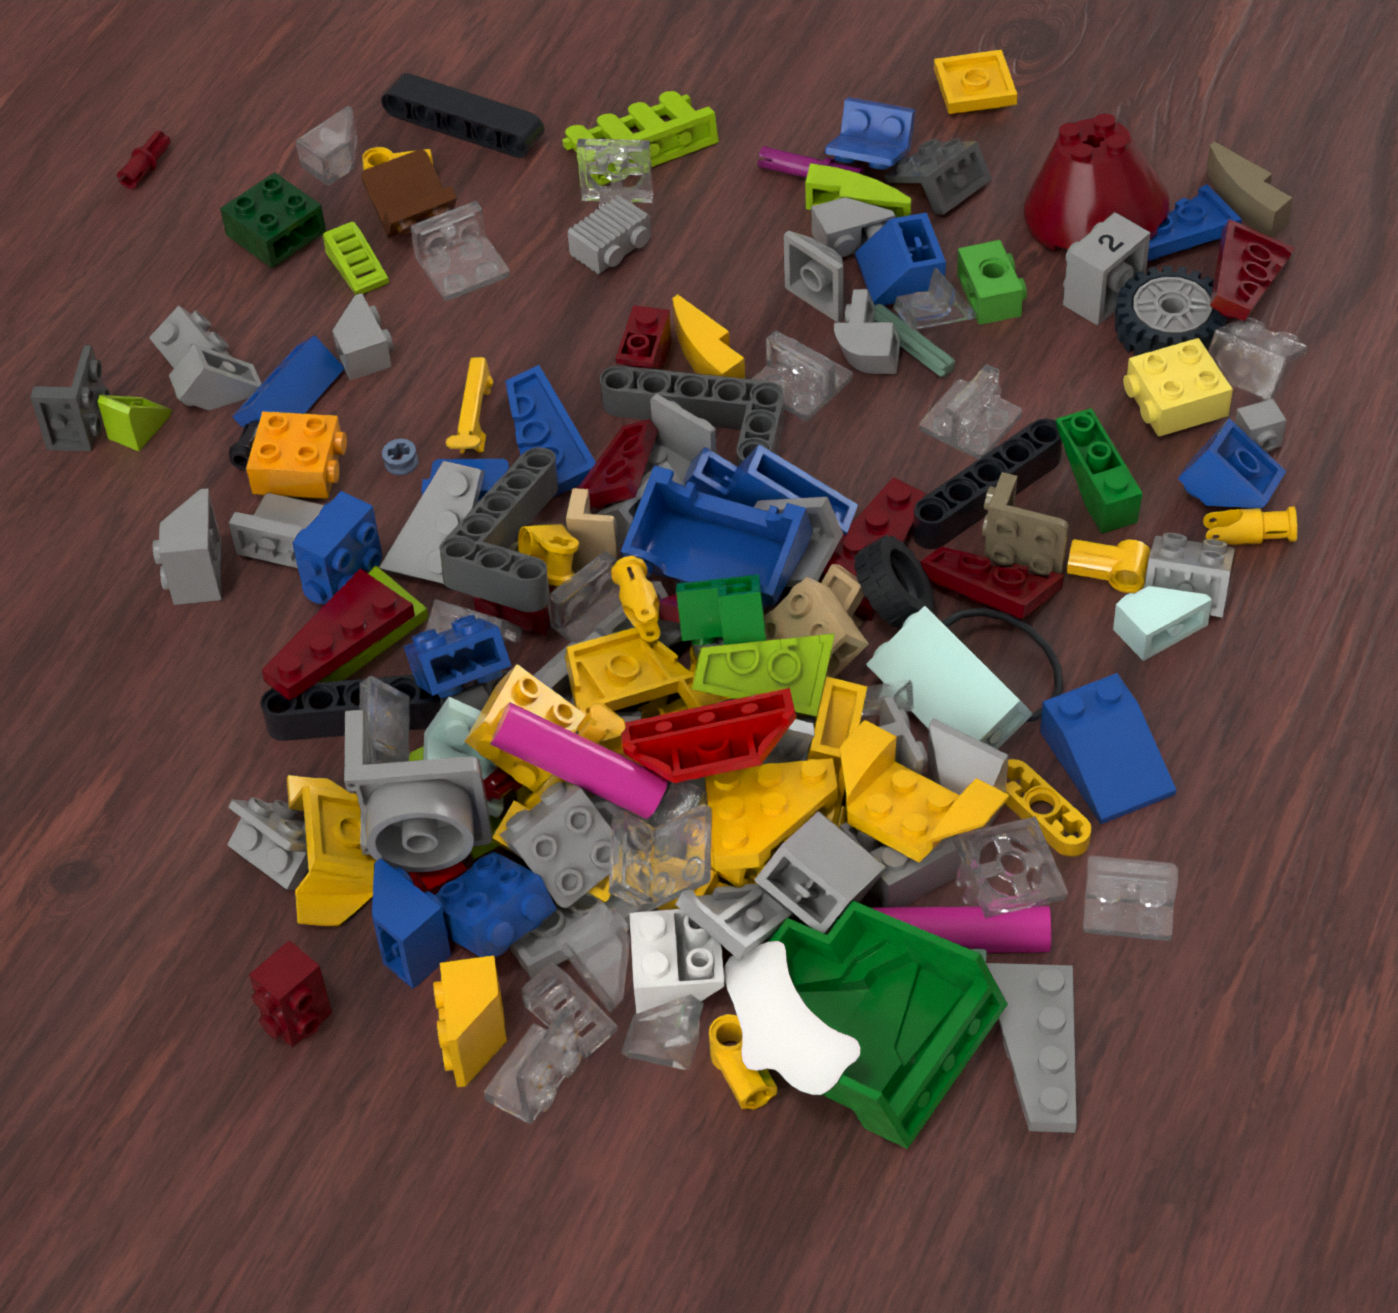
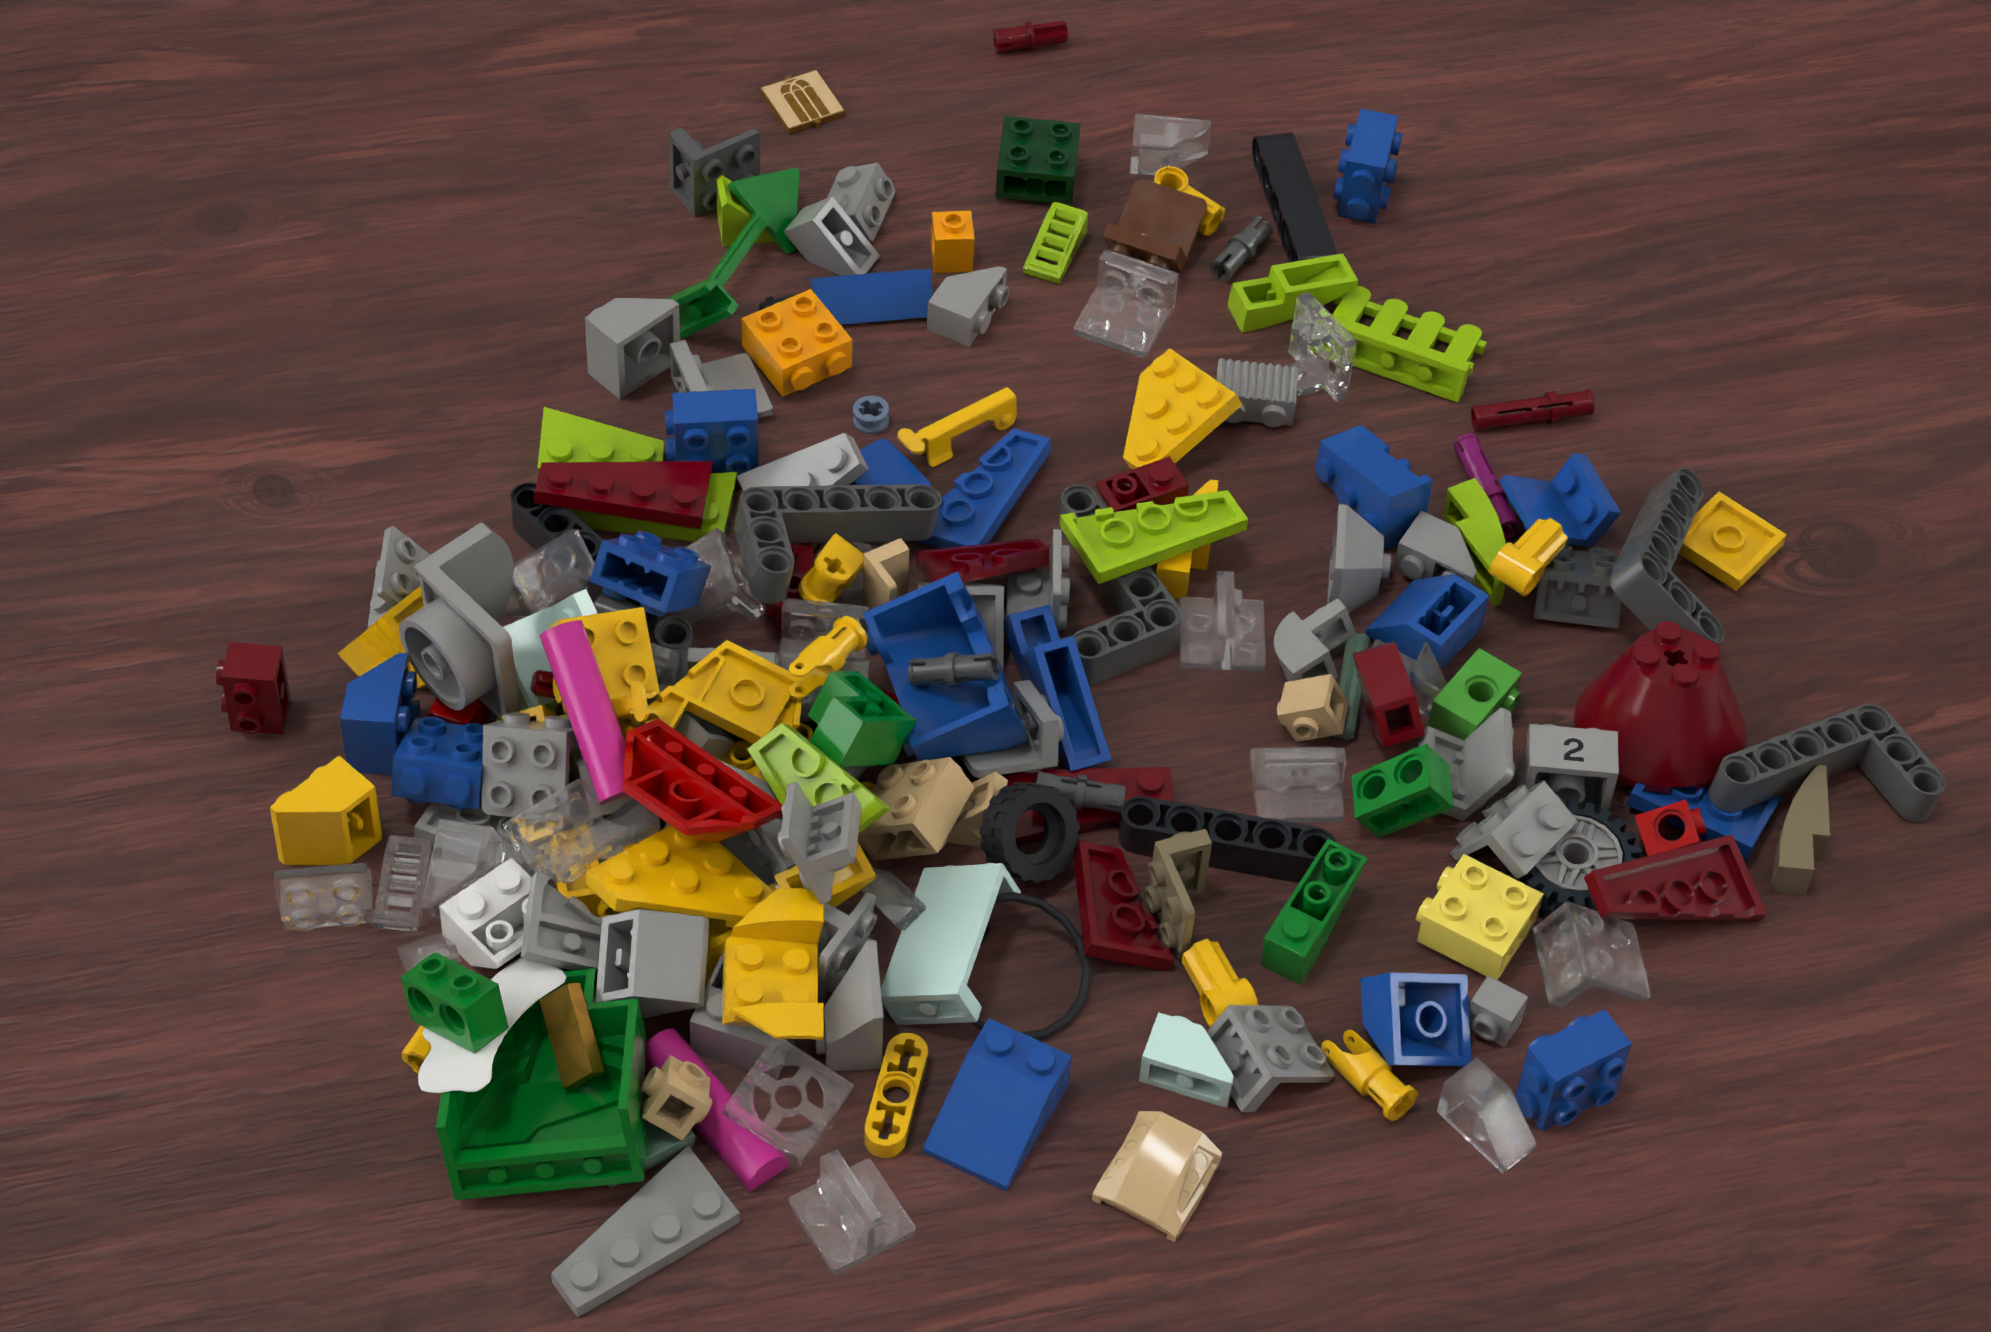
camera: 45 degrees right, 0 degrees up
(53, 322) = (802, 101): none -> piece
(213, 470) = (772, 206): none -> green piece
(247, 646) = (584, 440): none -> lime wing
(294, 311) = (952, 241): none -> light orange brick
(468, 166) = (1241, 248): none -> dark grey pin
(480, 51) = (1368, 166): none -> blue brick
(539, 162) = (1273, 298): none -> lime slope
(585, 284) = (1174, 410): none -> yellow plate
(695, 355) = (1136, 538): none -> lime wing
(720, 531) = (953, 669): none -> dark grey pin
(755, 218) = (1373, 481): none -> blue wedge
(756, 1022) = (454, 1002): none -> green brick
(786, 84) = (1577, 404): none -> dark red pin
(839, 681) = (819, 837): none -> light grey bracket
(842, 968) = (571, 1035): none -> pearl gold tile
(893, 524) = (1086, 792): none -> dark grey pin
(914, 177) = (1524, 562): none -> yellow piece
(921, 367) = (1313, 708): none -> tan brick
(958, 317) = (1388, 695): none -> dark red slope
(960, 925) = (676, 1096): none -> tan brick
(975, 116) = (1644, 566): none -> dark grey beam
(1050, 312) = (1478, 763): none -> light grey bracket
(1051, 363) = (1402, 791): none -> green brick
(1125, 313) = (1518, 828): none -> light grey bracket
(1184, 255) = (1652, 821): none -> red brick
(1216, 114) = (1856, 737): none -> dark grey beam
(1240, 691) = (1159, 1172): none -> tan slope
(1338, 484) = (1486, 1115): none -> clear slope
(1352, 412) = (1572, 1070): none -> blue brick

